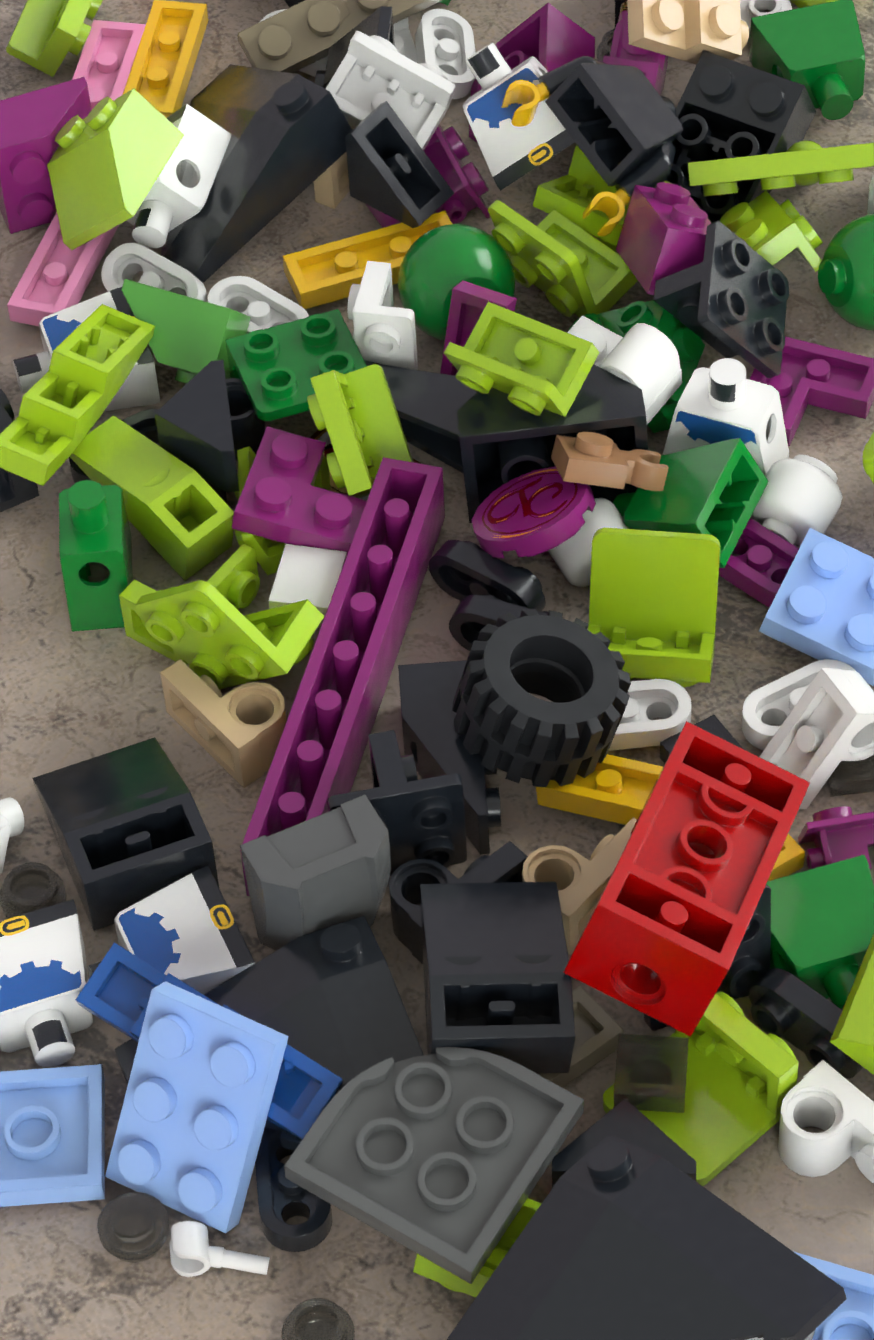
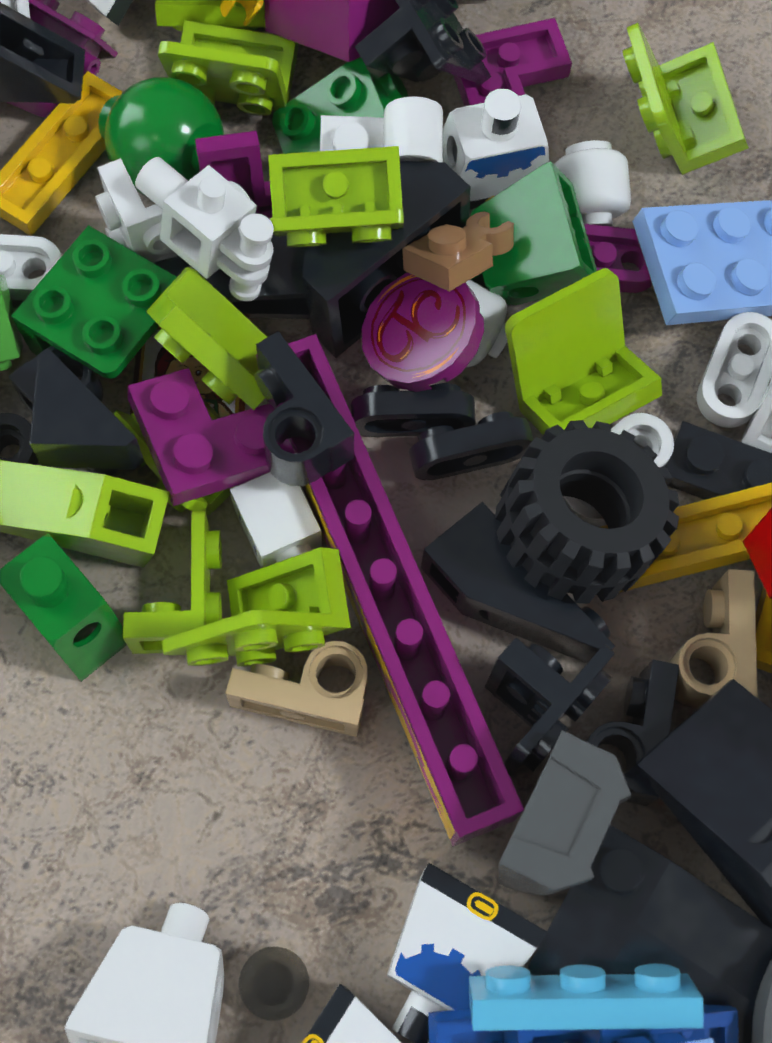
camera: 45 degrees left, 20 degrees up
(124, 827) = (304, 859): black slope -> none
(232, 986) = (584, 999): none -> medium azure plate
(360, 510) = (303, 413): none -> black plate
(412, 338) = (211, 225): none -> white piece

